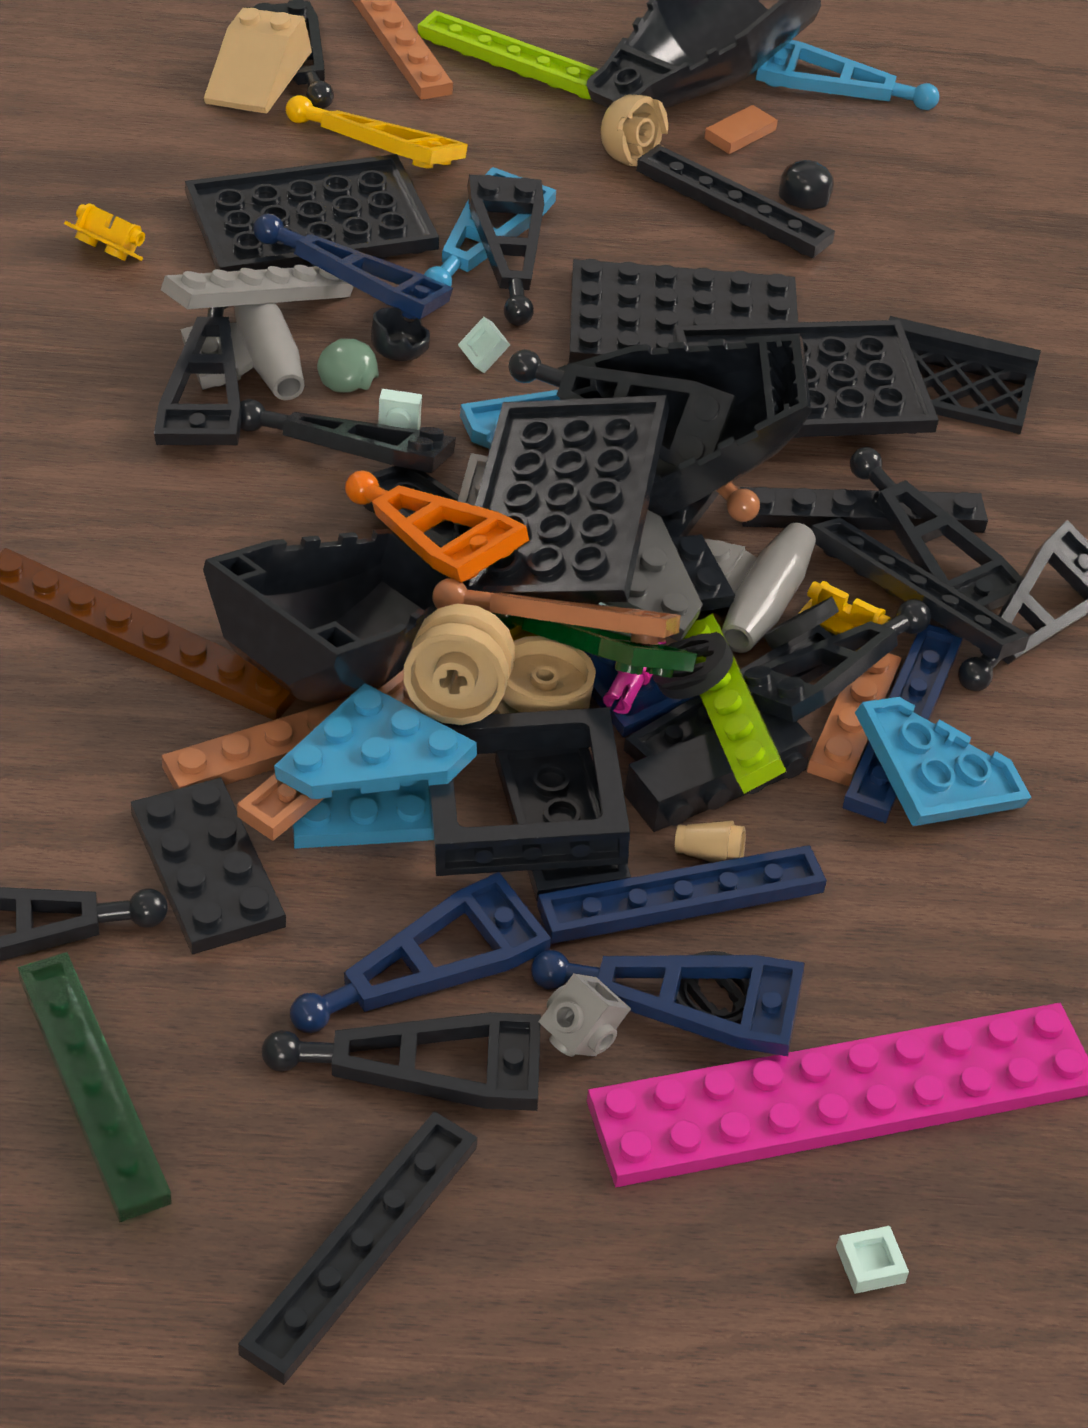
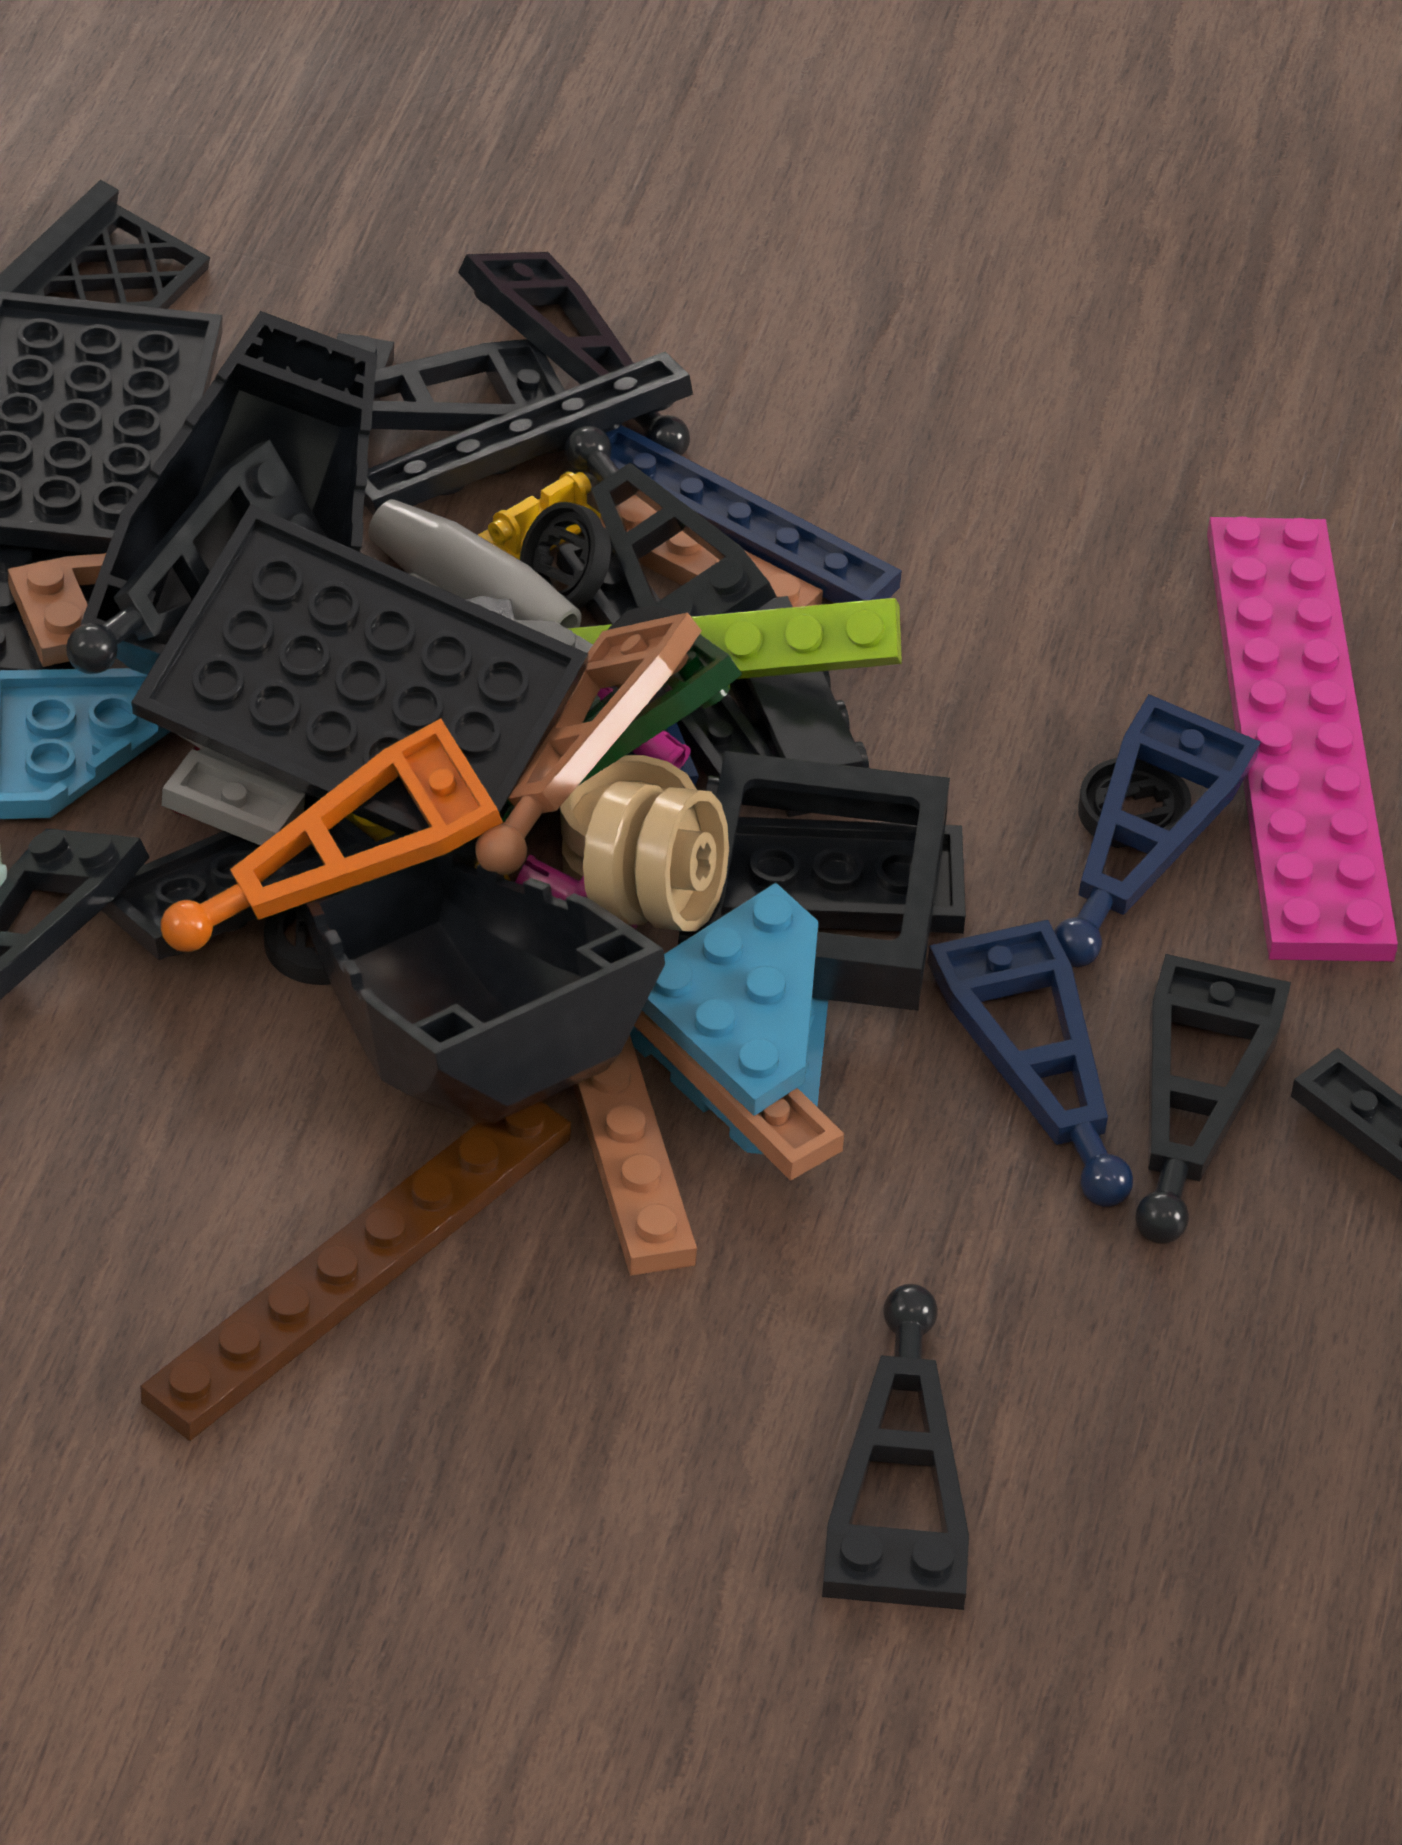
camera: 75 degrees left, 0 degrees up
(94, 1088) = (1189, 1404): clear green plate -> none
(207, 865) = (830, 1245): black plate -> none
(583, 1016) = (1182, 912): light grey brick -> none
(680, 894) = (987, 792): dark blue plate -> none
(711, 841) = (912, 736): tan cone -> none
(936, 767) = (848, 503): dark azure plate -> none

